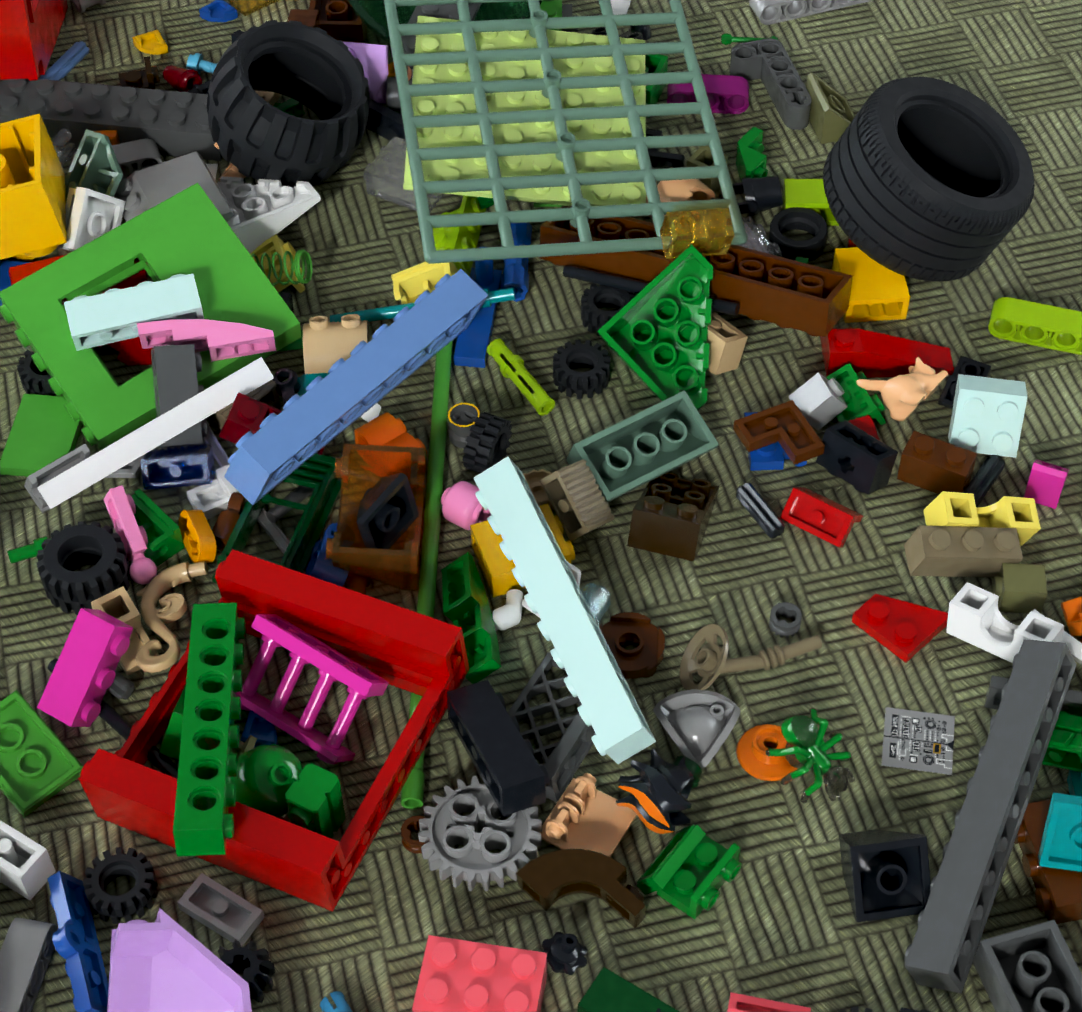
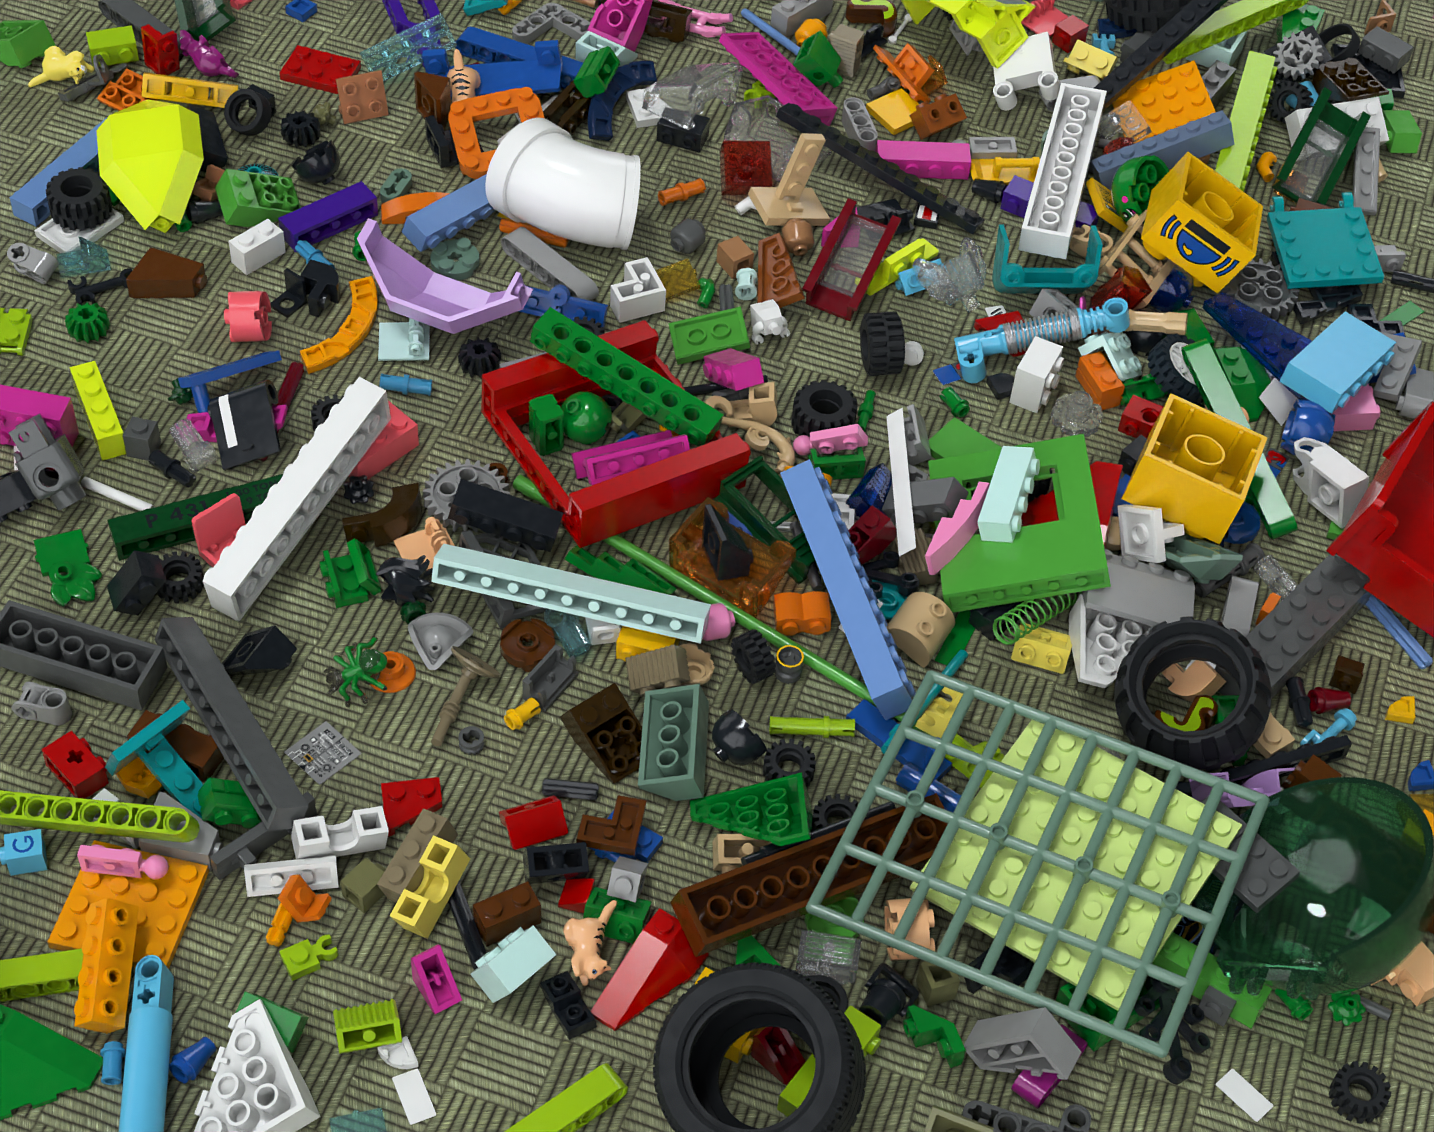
camera: 120 degrees right, 0 degrees up
(599, 404) = (735, 740): none -> black cylinder
(658, 601) = (550, 678): none -> dark grey hinge
(663, 948) = (297, 499): none -> white brick
(705, 229) = (822, 852): clear yellow brick -> none
(717, 596) = (516, 717): none -> yellow pin
(725, 90) = (1024, 1042): none -> light grey wedge

